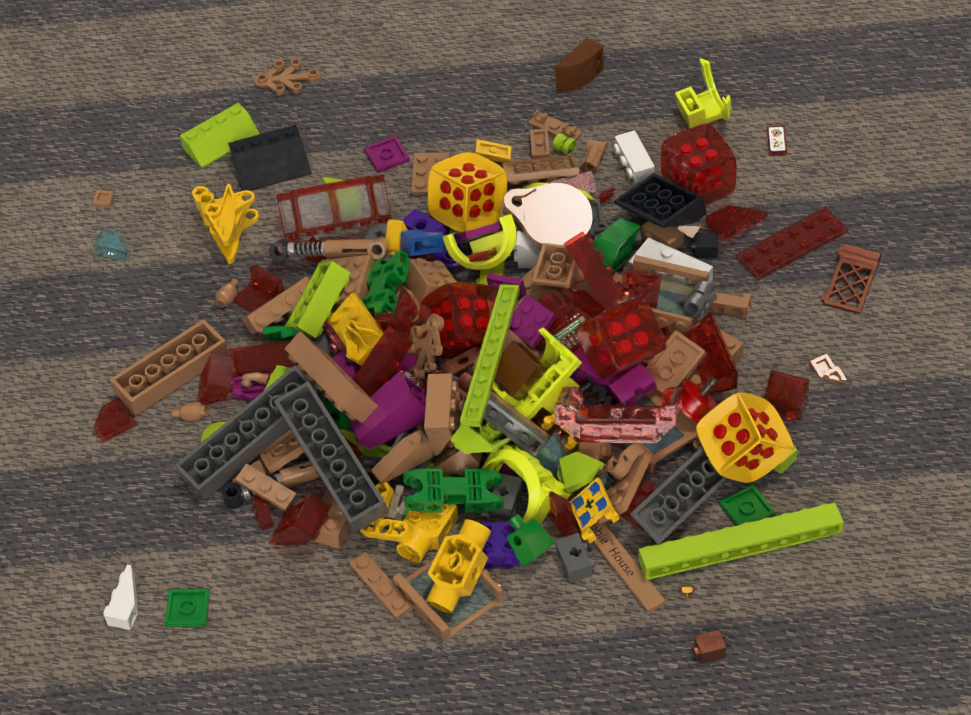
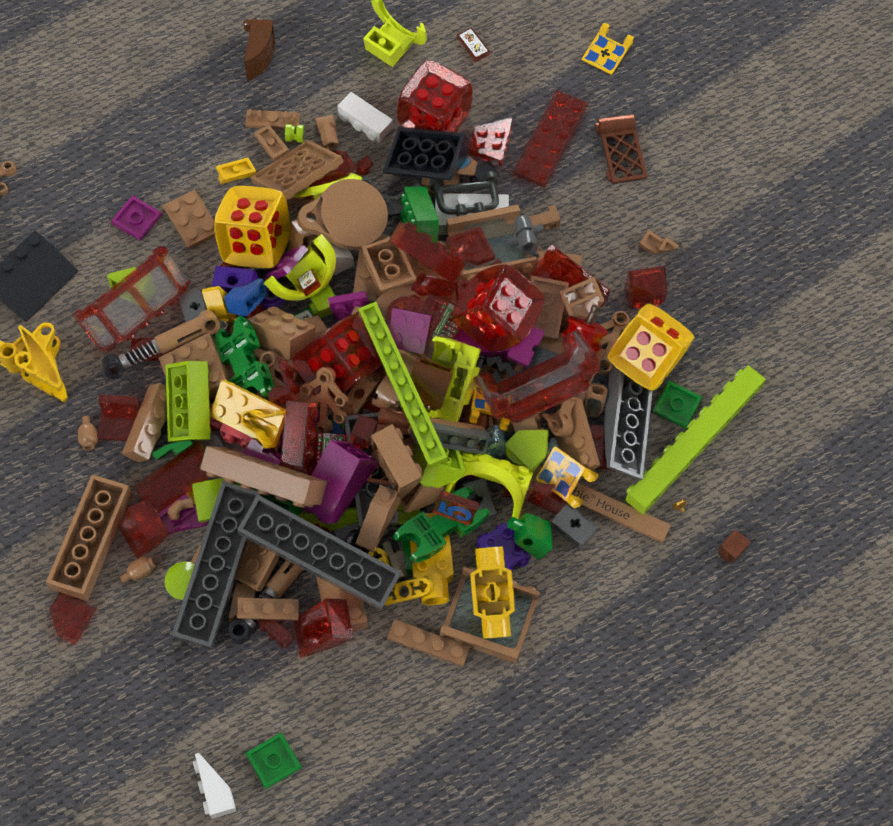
camera: 40 degrees left, 15 degrees up
(466, 474) = (455, 507): none -> clear red tile
(653, 232) = (490, 181): none -> pearl dark grey bar
(668, 462) = (595, 400): none -> medium nougat rock
(707, 365) = (581, 297): none -> medium nougat slope
(898, 196) = (605, 52): none -> yellow flag

